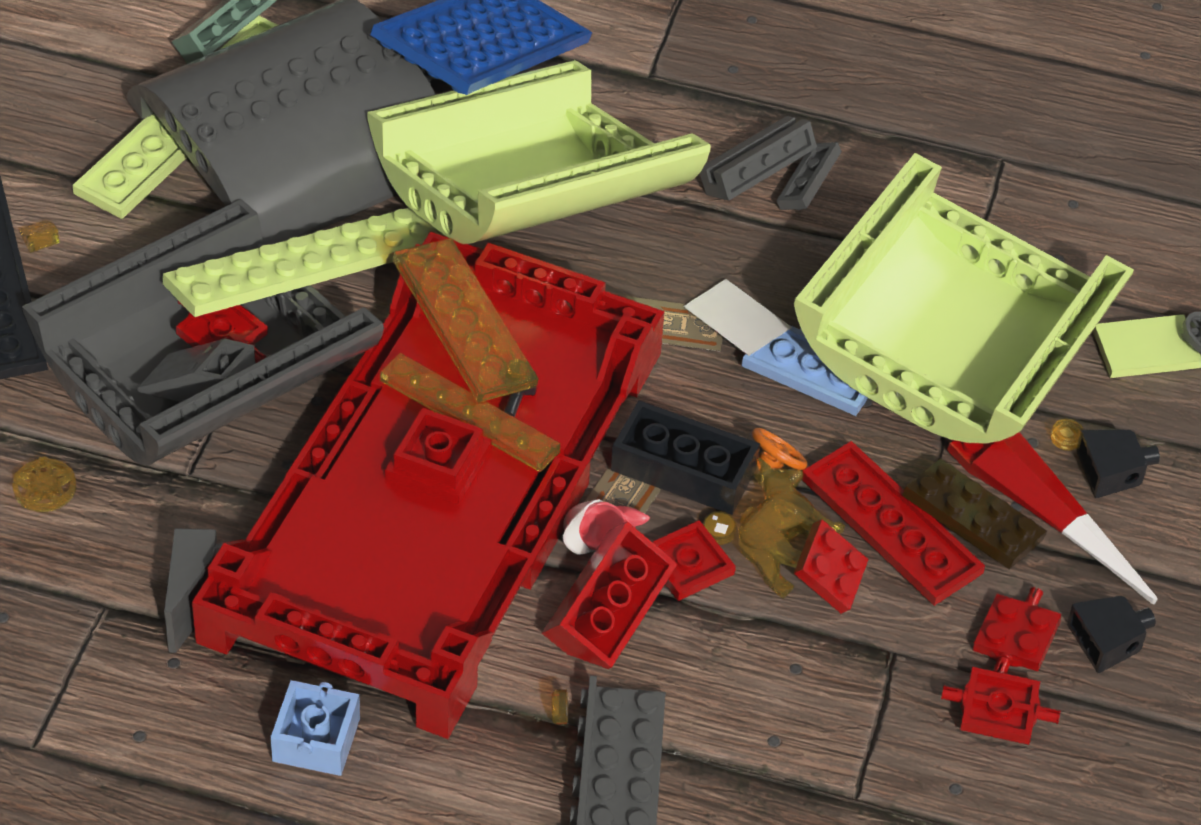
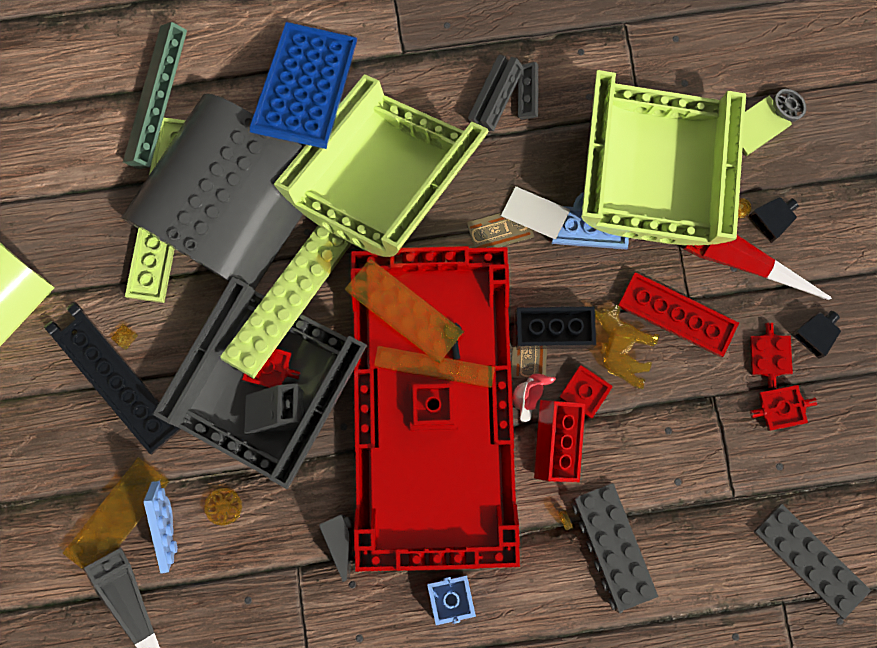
camera: 20 degrees left, 30 degrees up
(721, 527) = (590, 360): tile -> none
(777, 451) = (600, 299): orange piece -> none
(831, 566) = (663, 364): red plate -> none
(974, 513) = (718, 289): dark brown plate -> none

